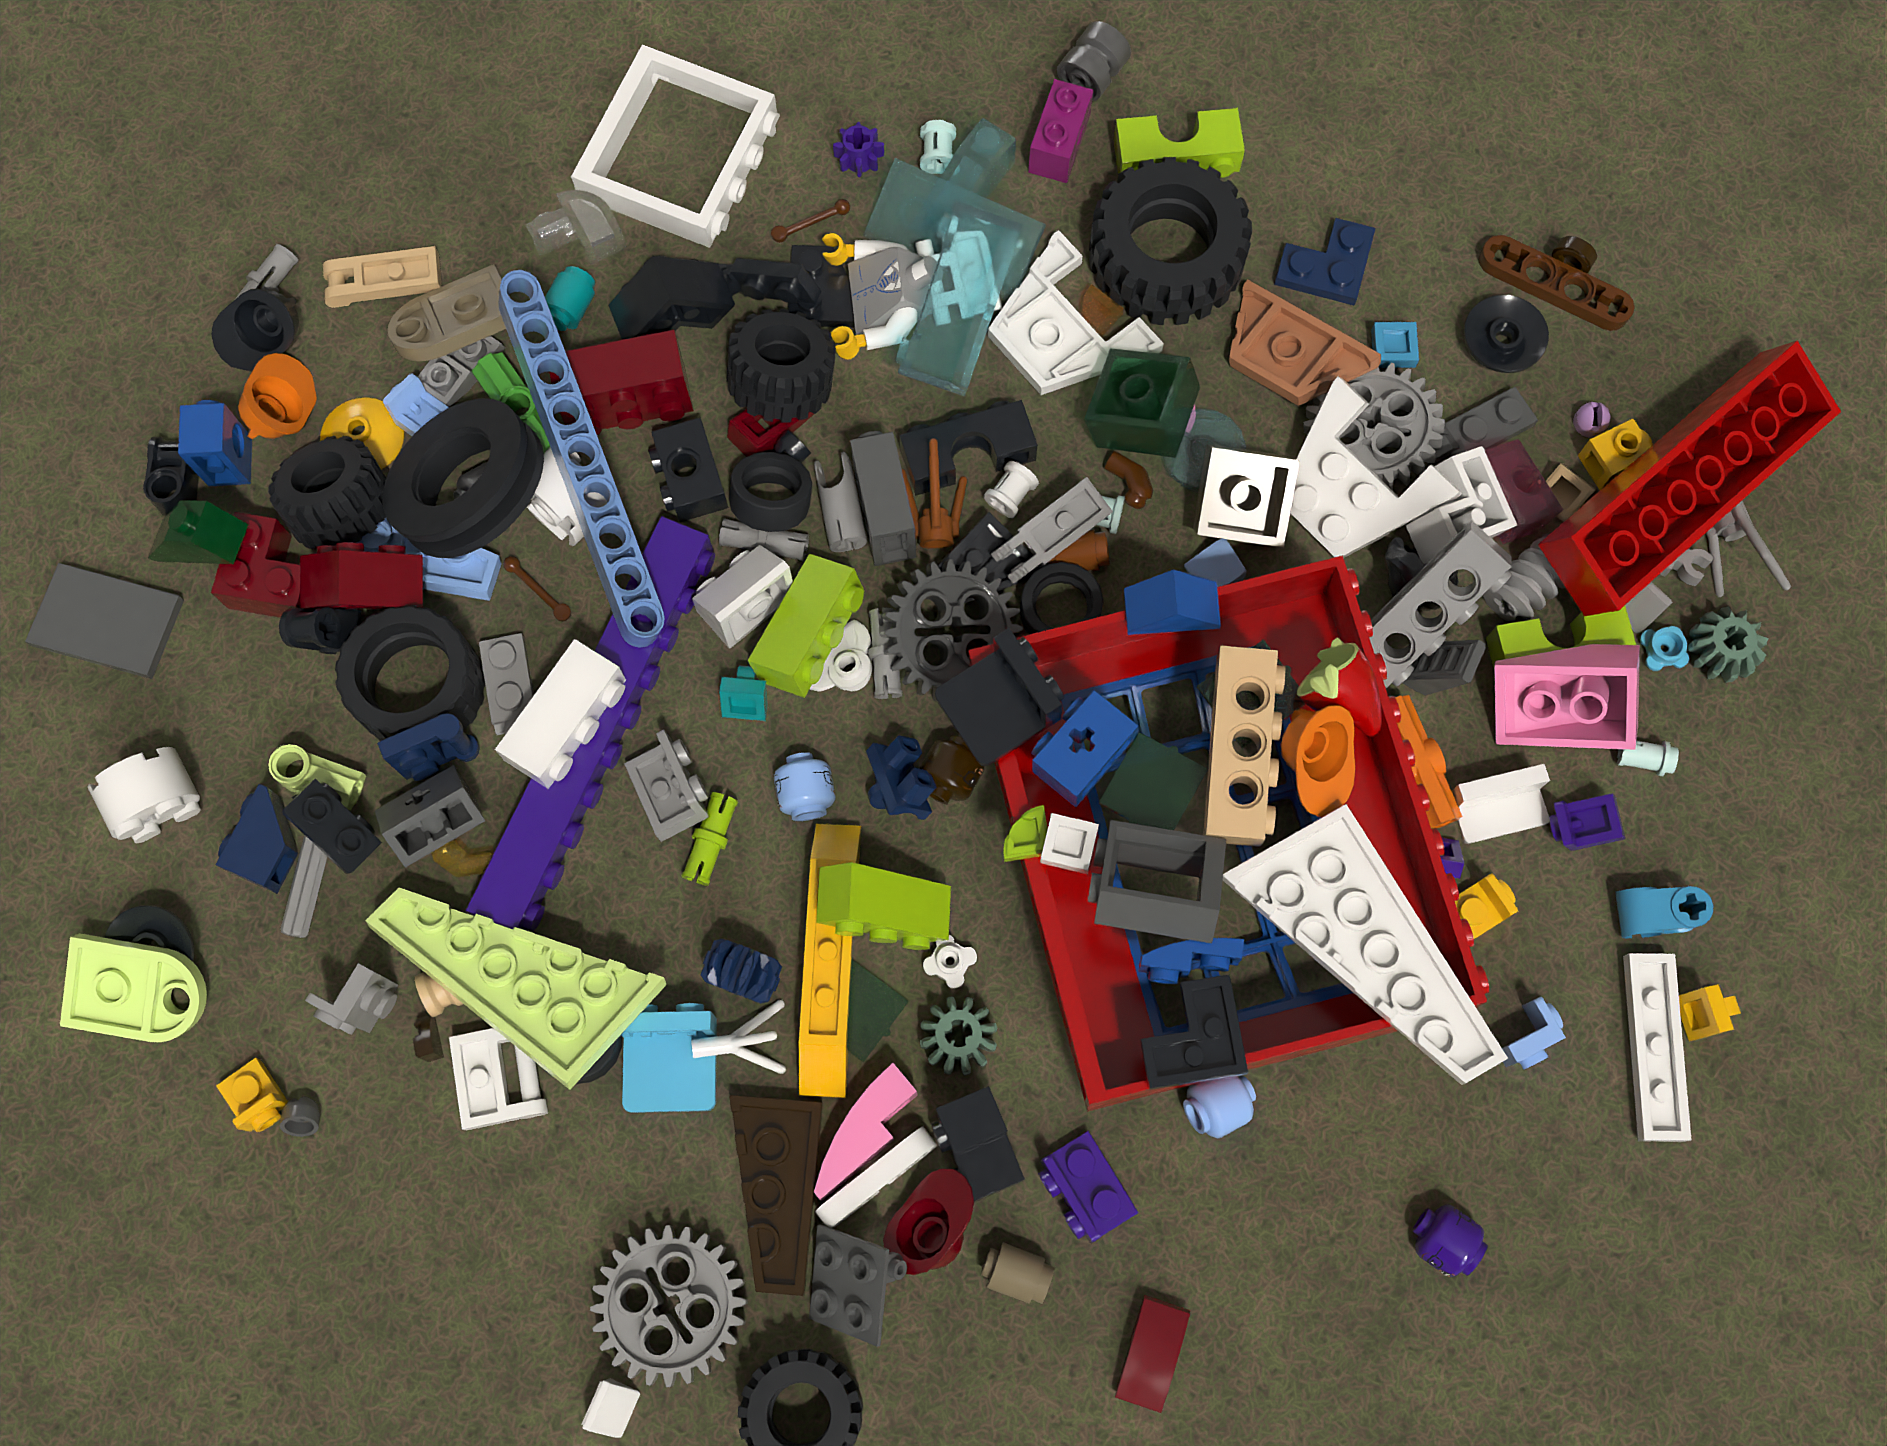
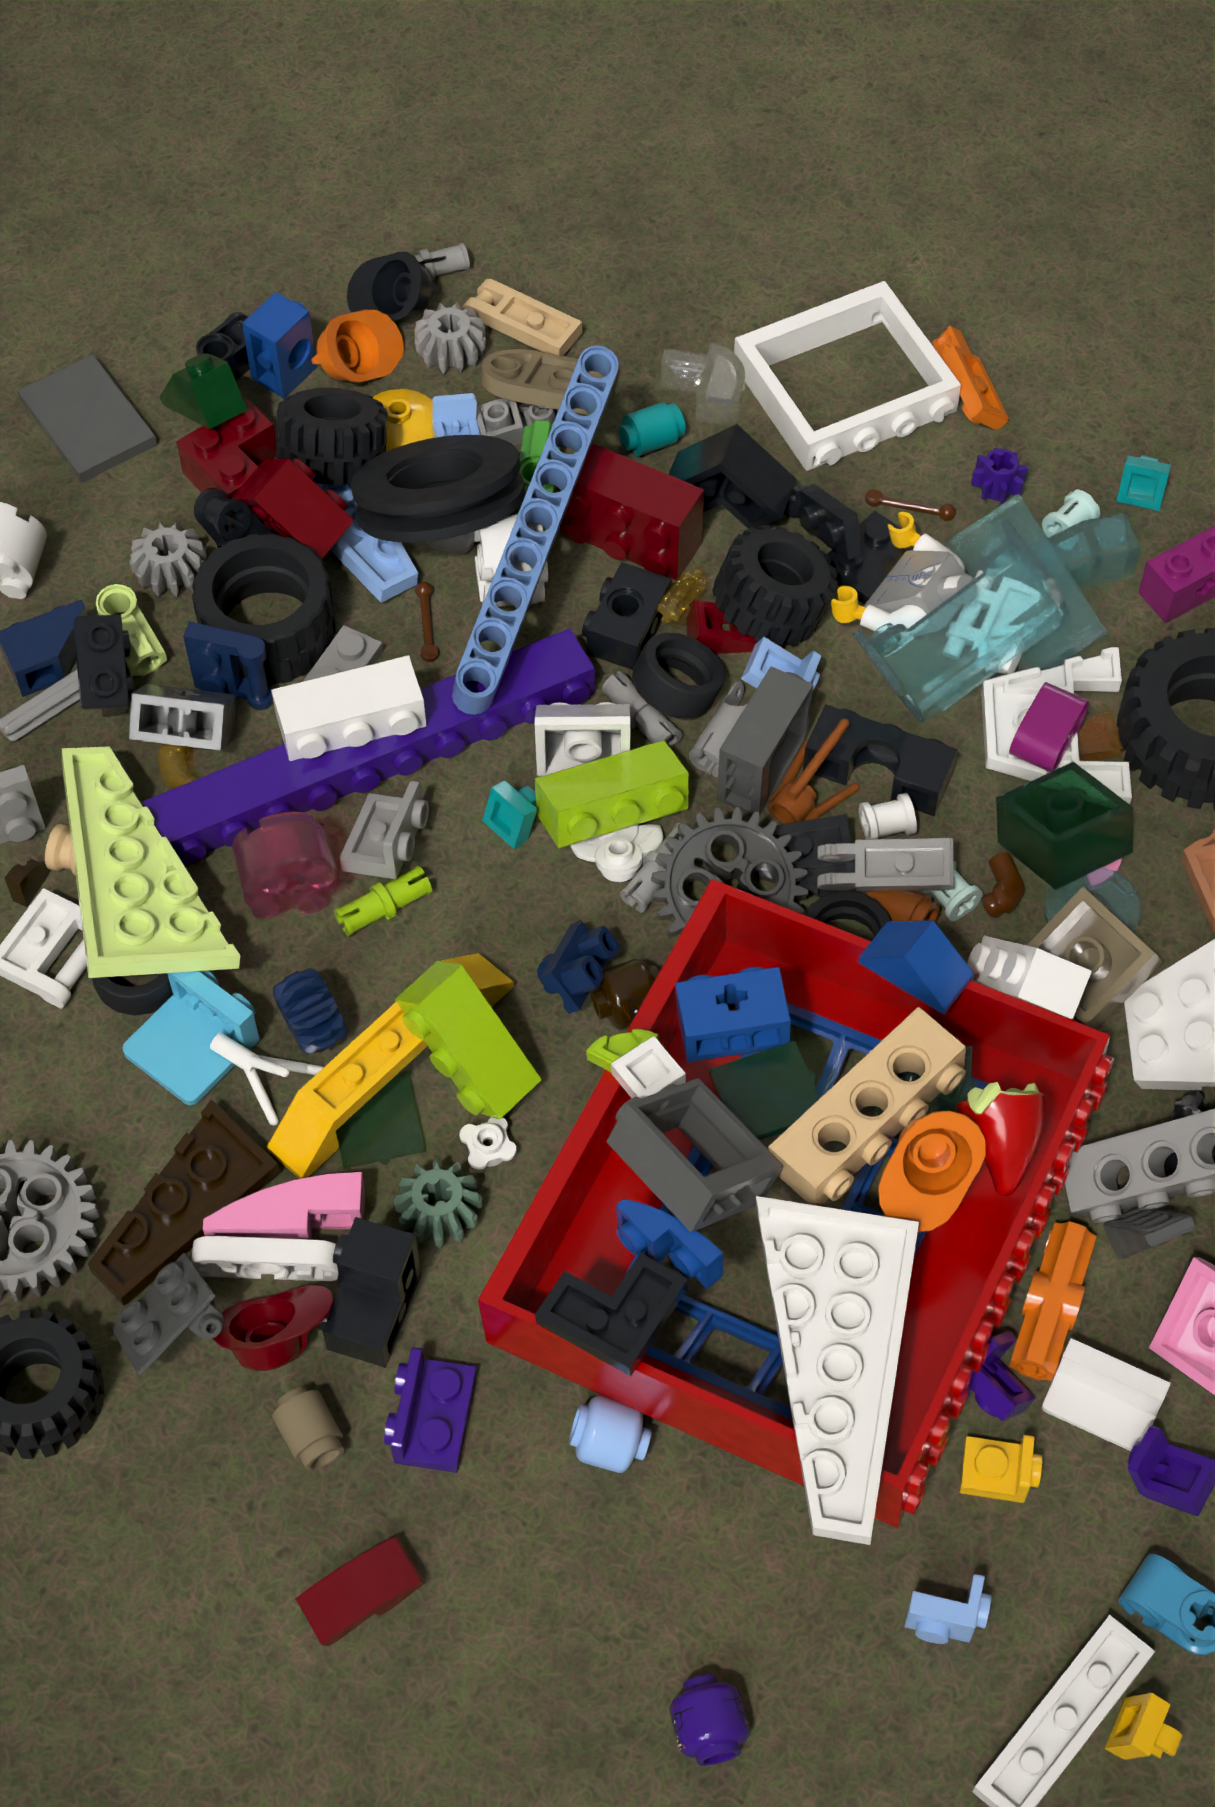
camera: 40 degrees right, 15 degrees down
(303, 702) = (167, 558): none -> light grey gear
(341, 335) = (450, 337): none -> light grey gear
(621, 874) = (285, 865): none -> clear pink brick
(715, 424) = (682, 595): none -> clear yellow axle
(792, 95) = (977, 391): none -> orange hinge
(792, 445) = (730, 658): black hinge -> none
(804, 787) = (495, 918): light blue head -> none
(832, 430) = (770, 654): none -> light blue bracket
(965, 79) = (1143, 482): none -> teal tile
(1001, 700) = (697, 927): black bracket -> none
(1070, 333) = (1049, 727): none -> magenta beam
(1242, 550) = (1029, 975): none -> white brick

